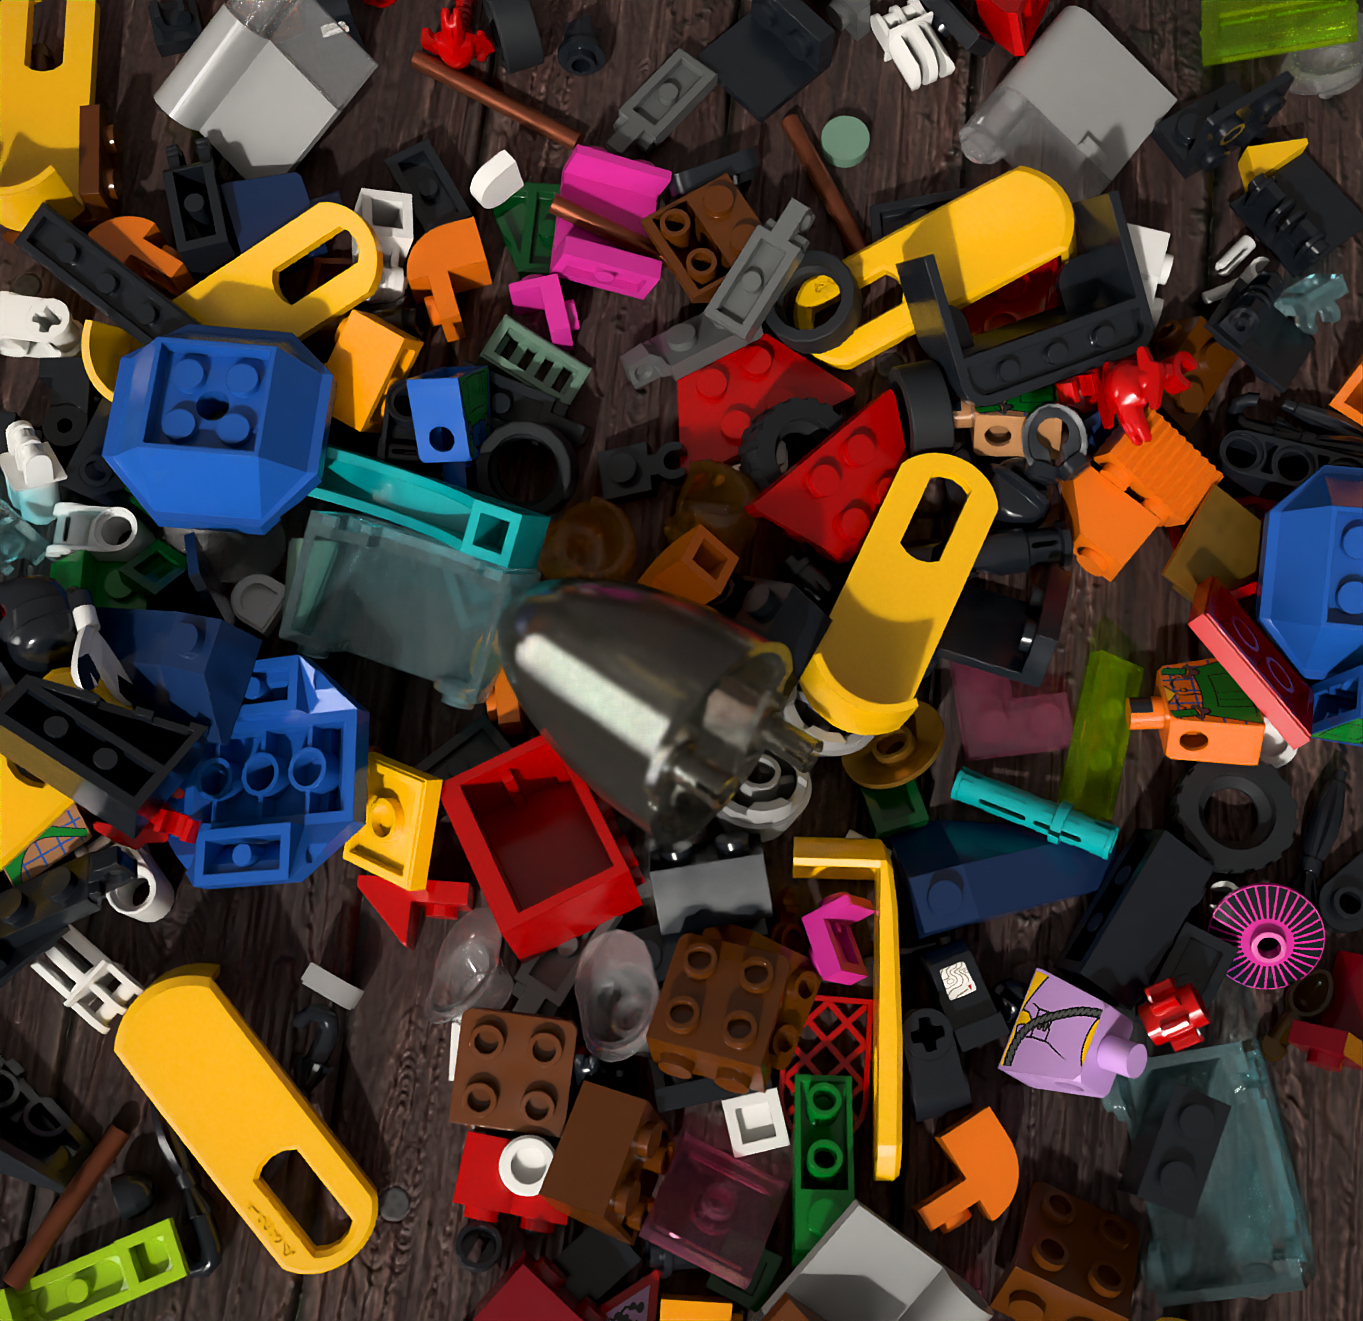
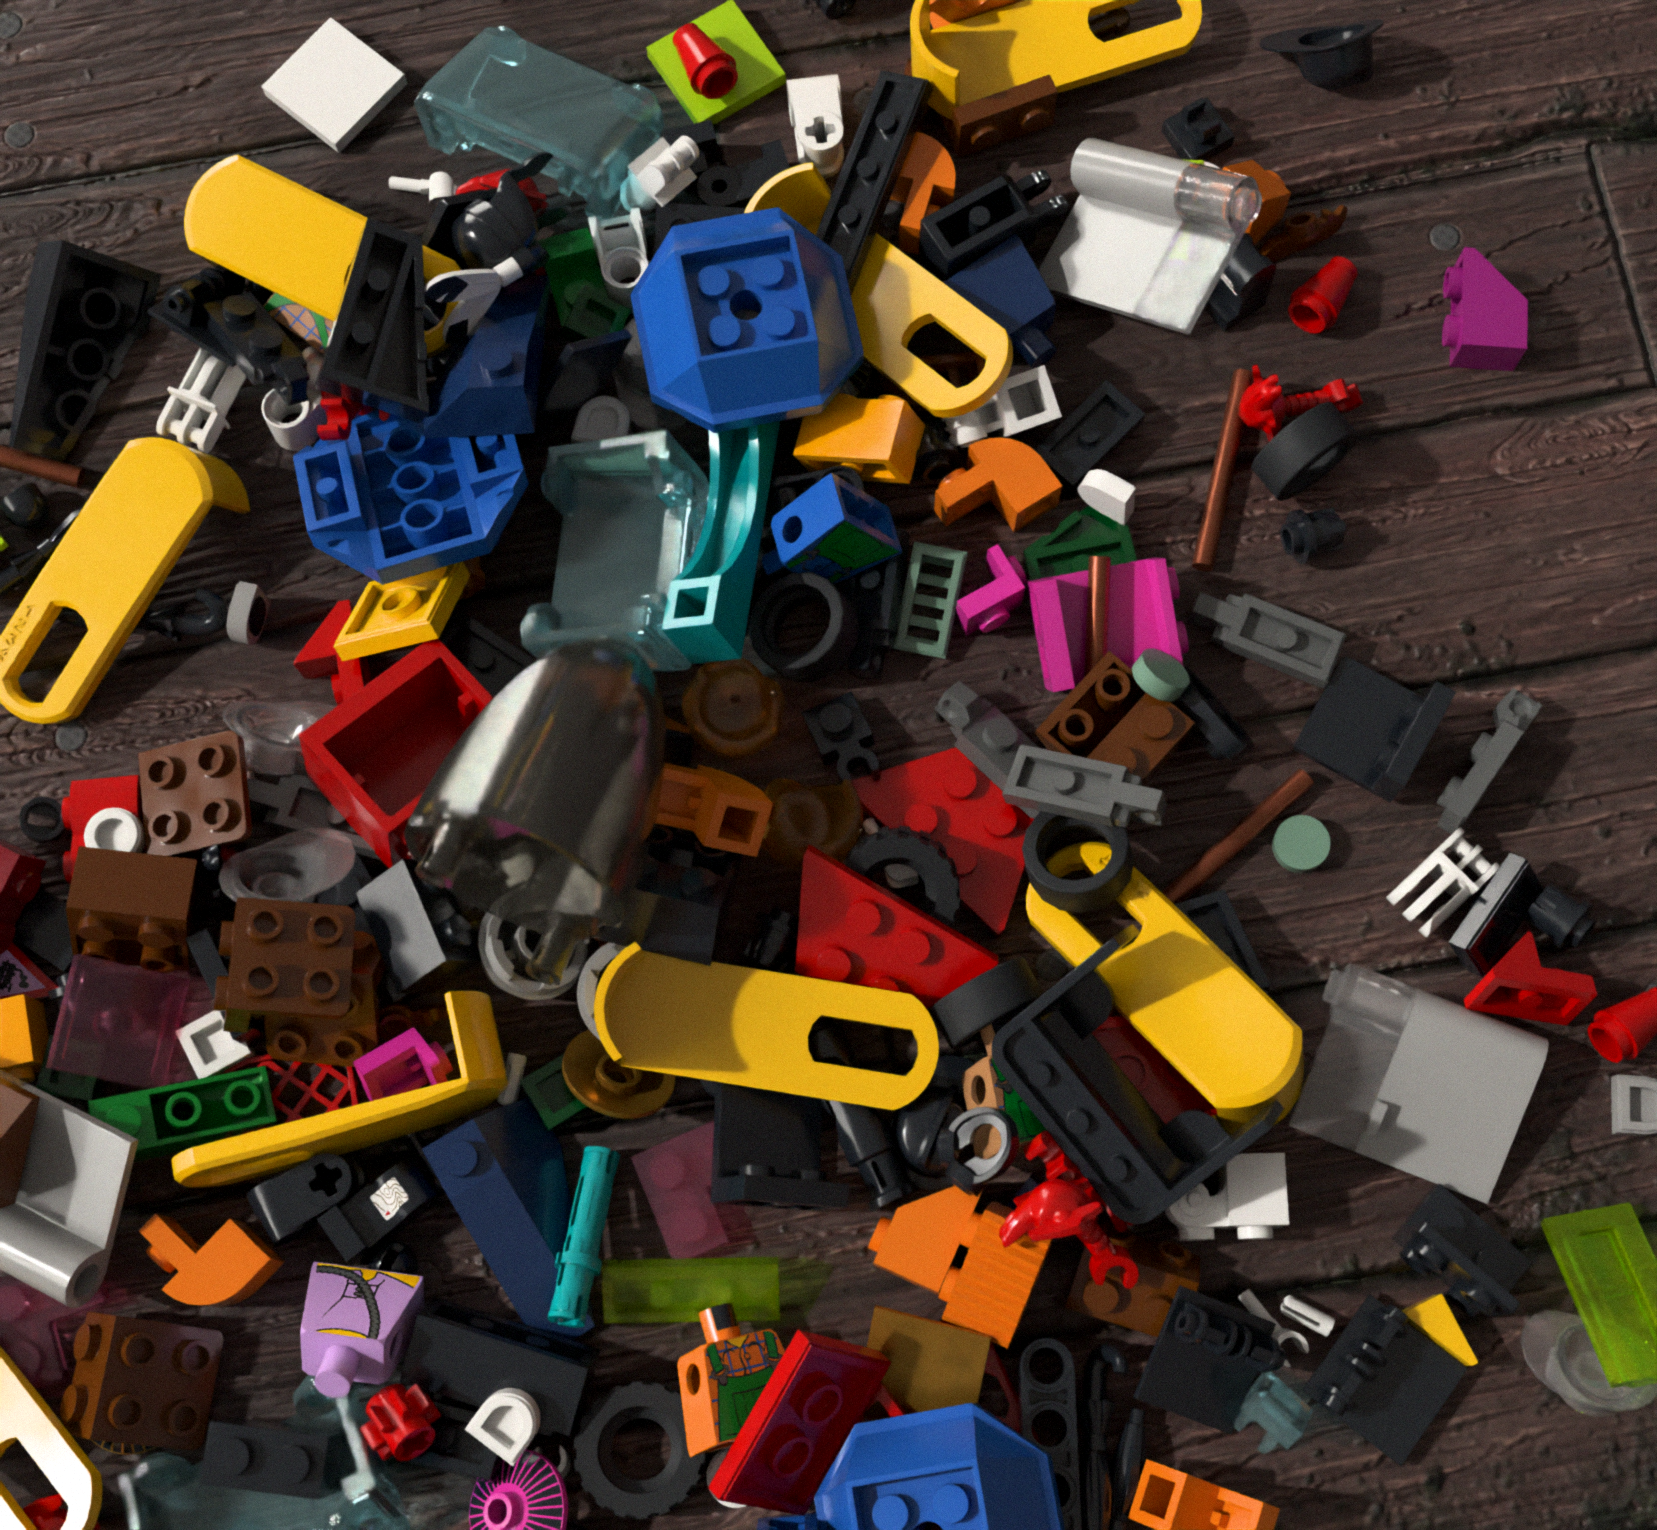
camera: 75 degrees right, 0 degrees up
(677, 185) = (1160, 675): none -> sand green tile
(1194, 918) = (506, 1423): none -> white tile

